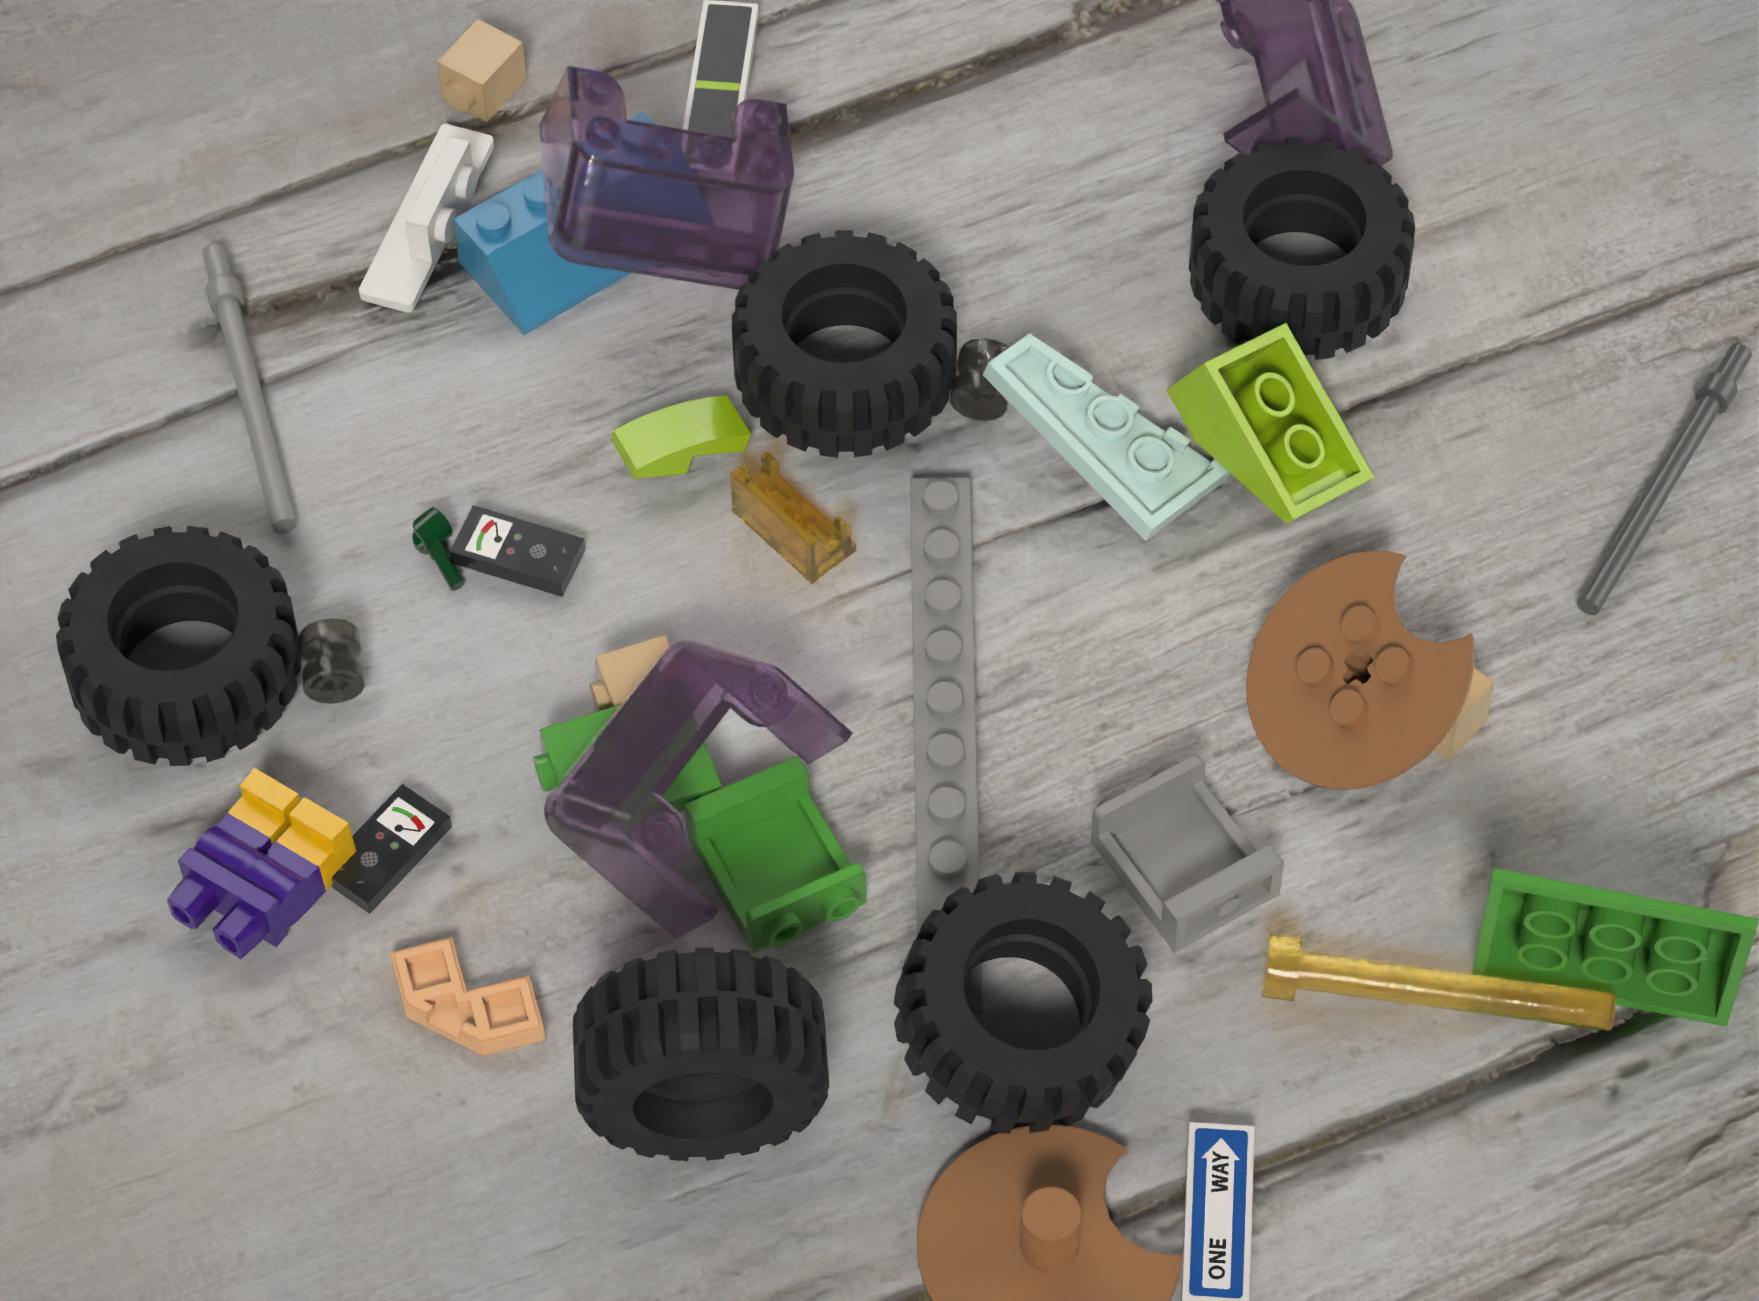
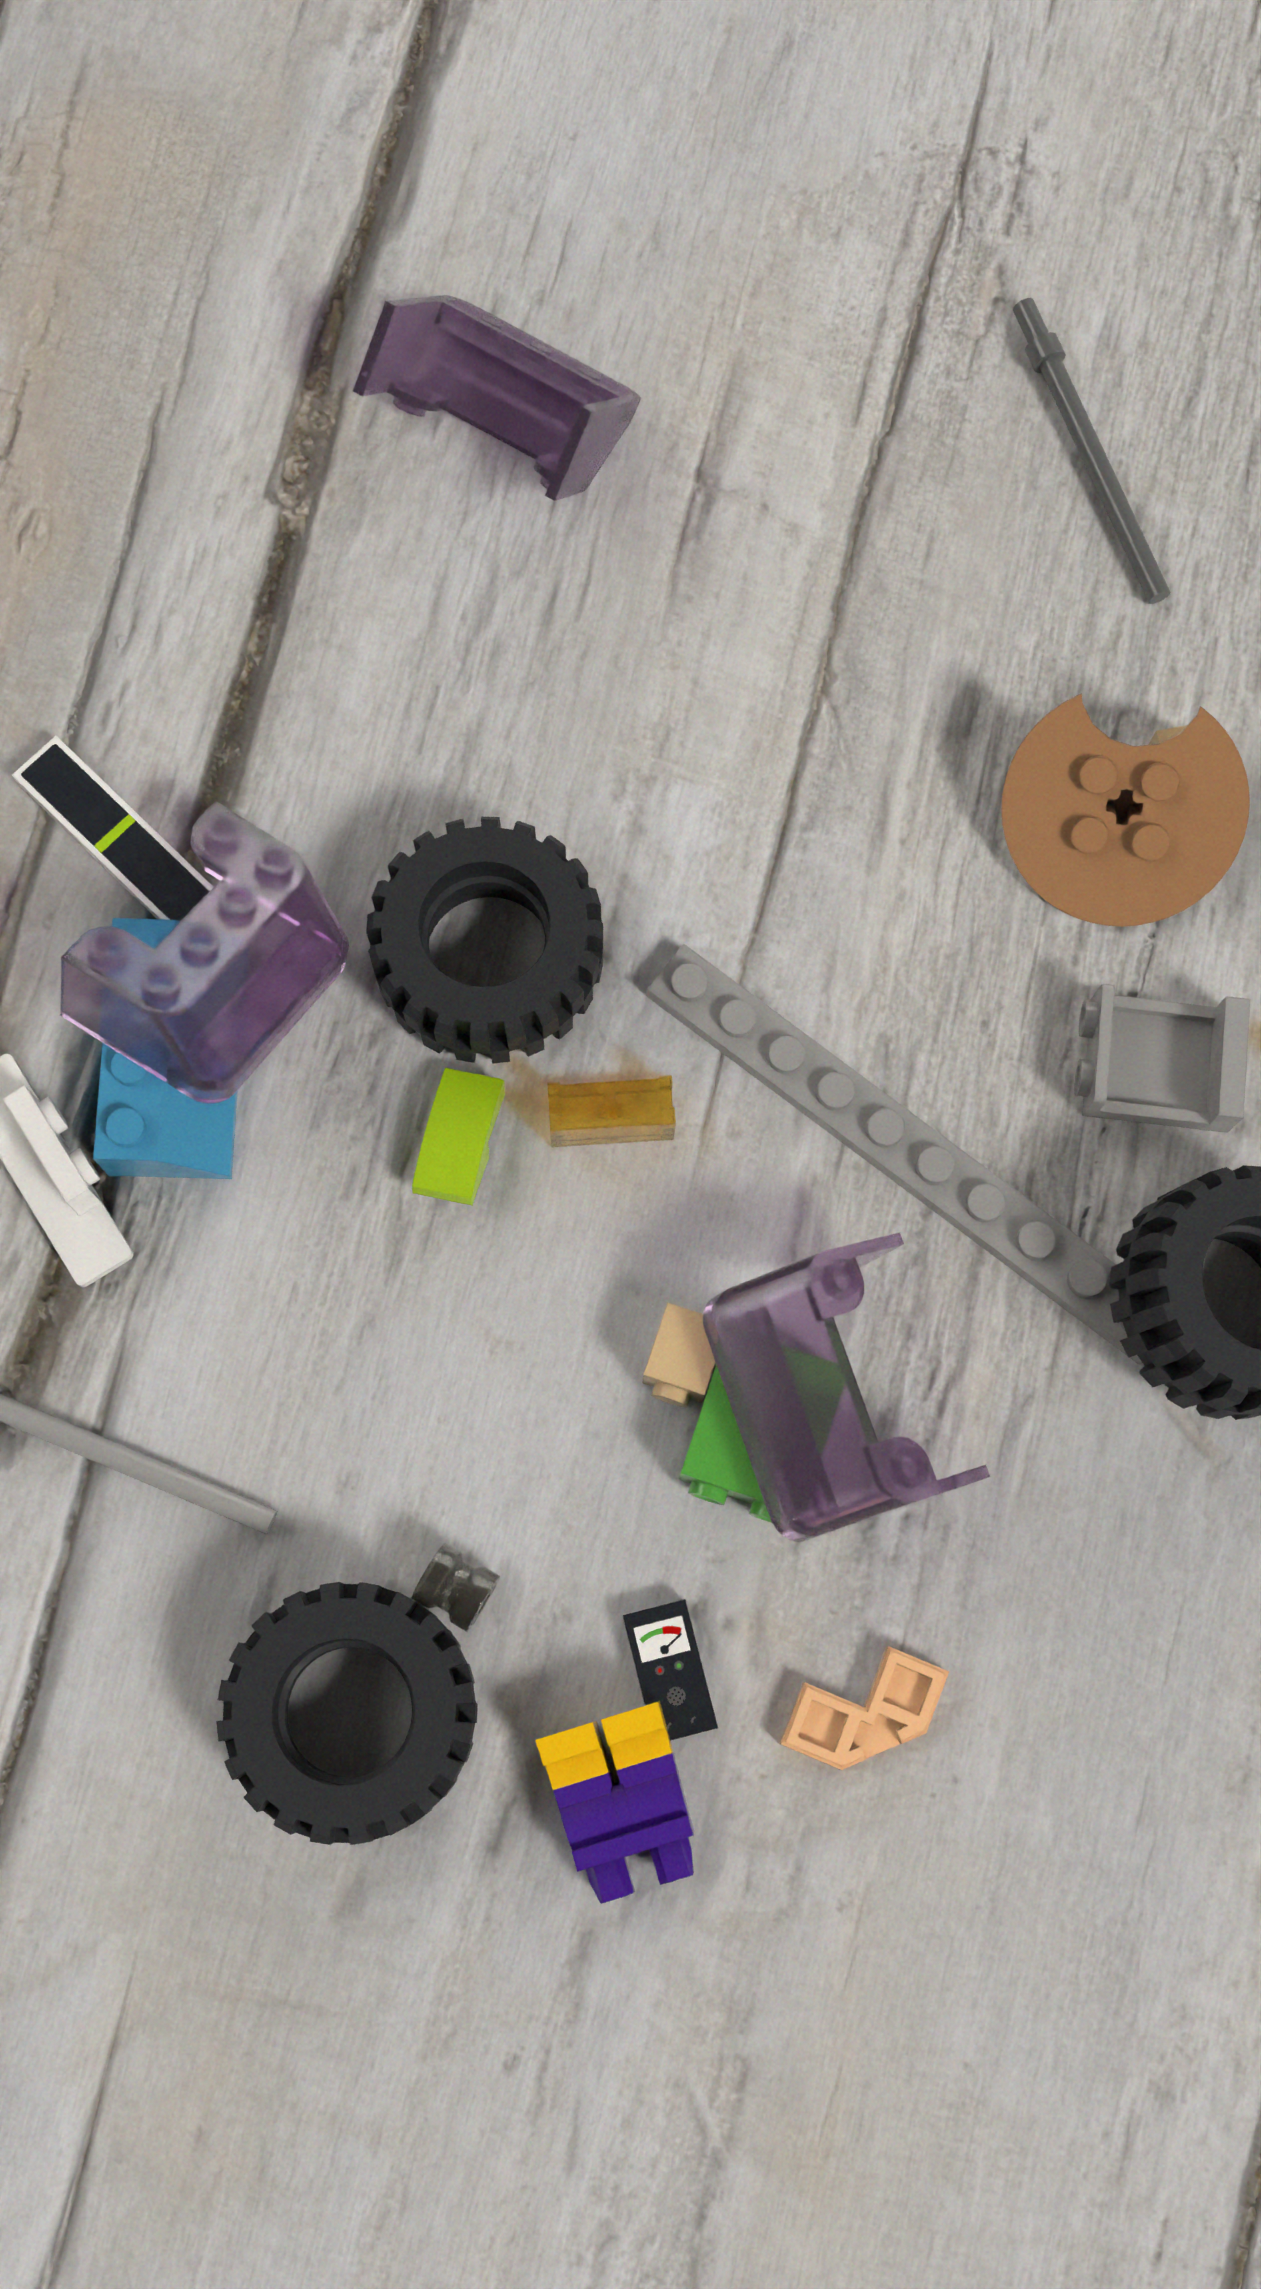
camera: 55 degrees left, 20 degrees up
(429, 533) = (382, 1410): dark green hand -> none
(517, 550) = (458, 1349): black tile -> none
(700, 1054) = (1136, 1592): black tyre -> none
(773, 856) = (935, 1369): bright green panel -> none
(970, 388) = (606, 862): clear smoke wheel -> none
(1125, 457) = (751, 814): light aqua wing -> none
(1271, 425) = (828, 685): lime slope -> none
(1313, 193) = (695, 461): black tyre -> none

